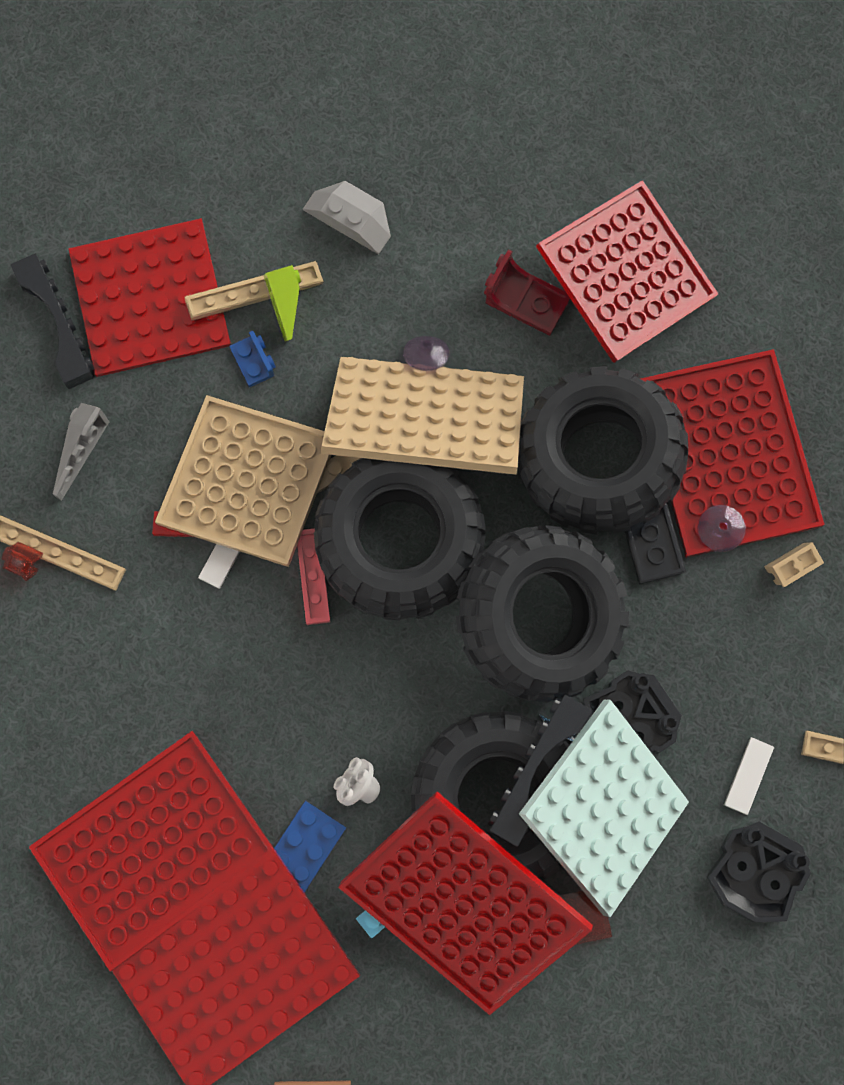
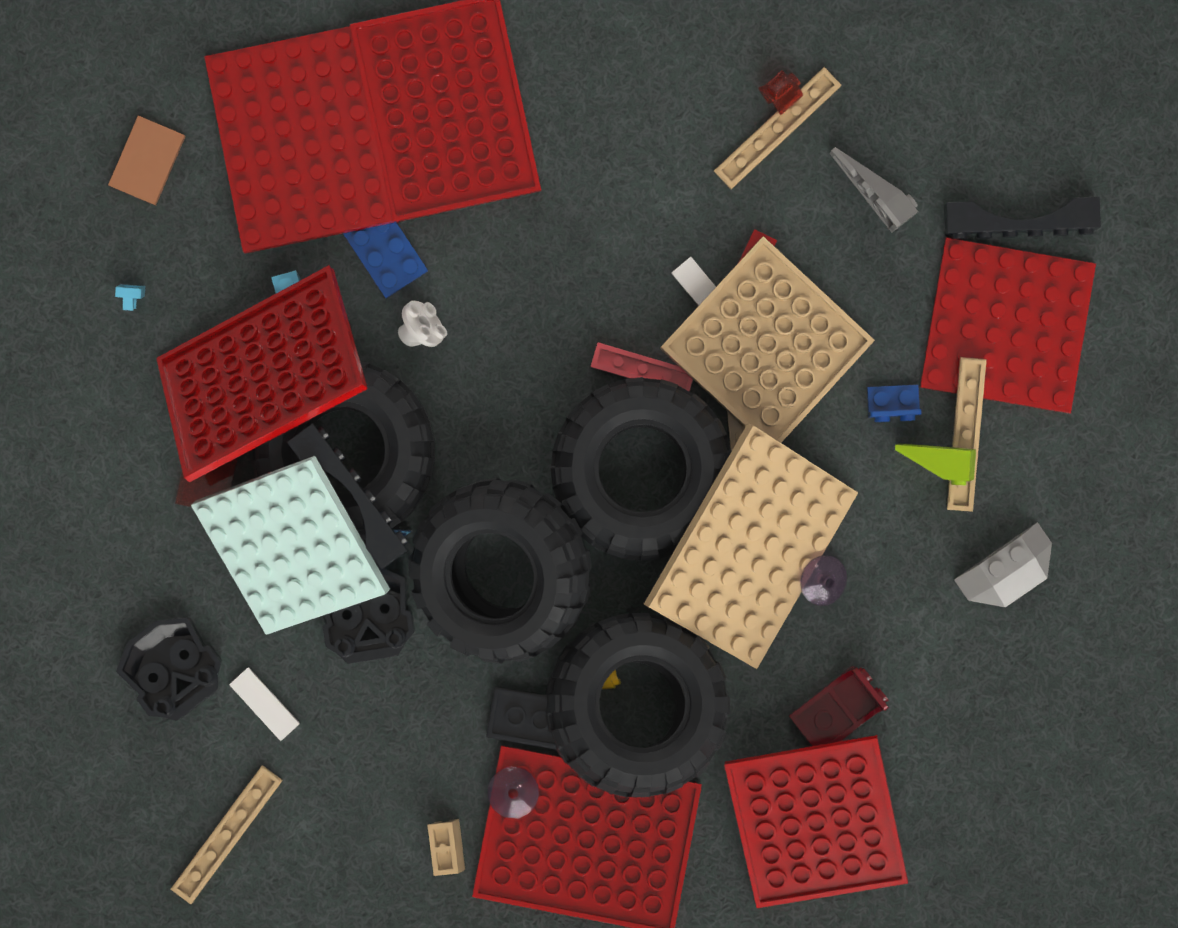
camera: 115 degrees right, 10 degrees up
(443, 1065) = (130, 294): none -> medium azure tile

